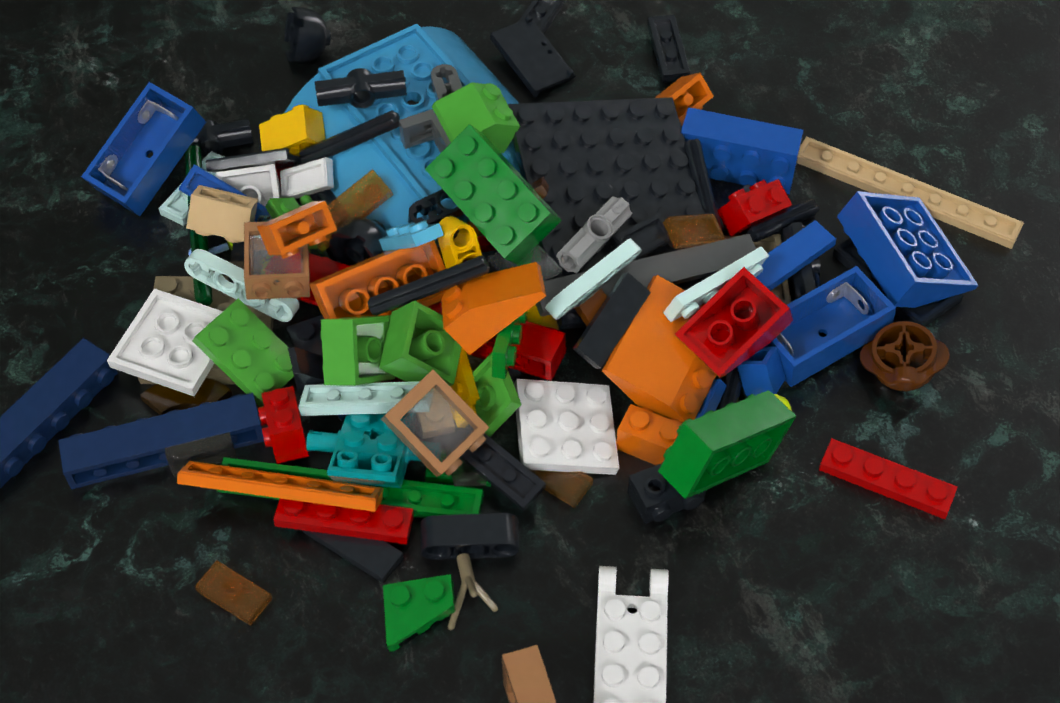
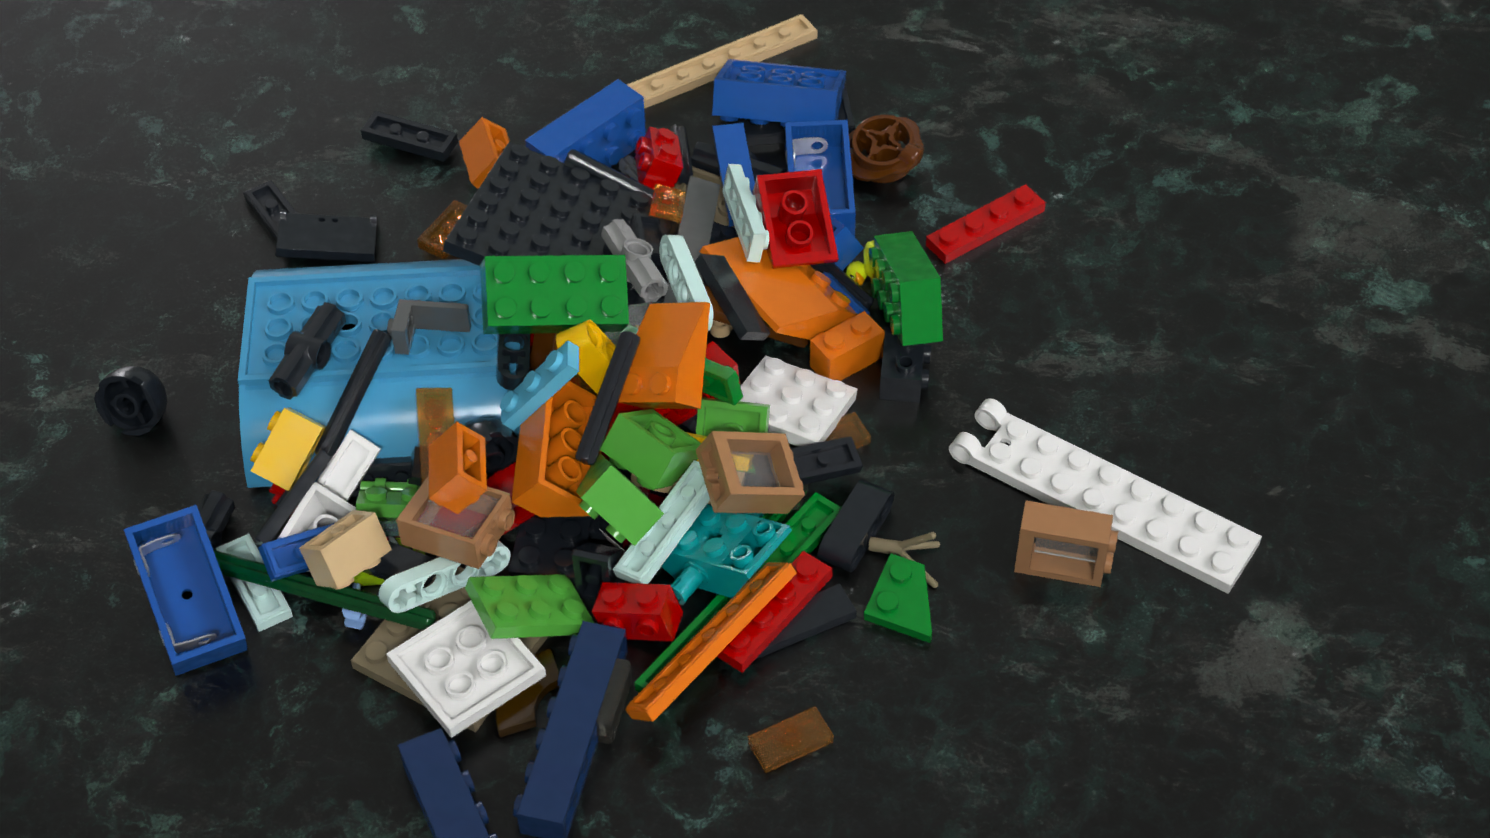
camera: 60 degrees left, 5 degrees down
(439, 87) = (365, 287): dark grey beam -> none
(482, 108) = (438, 270): bright green slope -> none

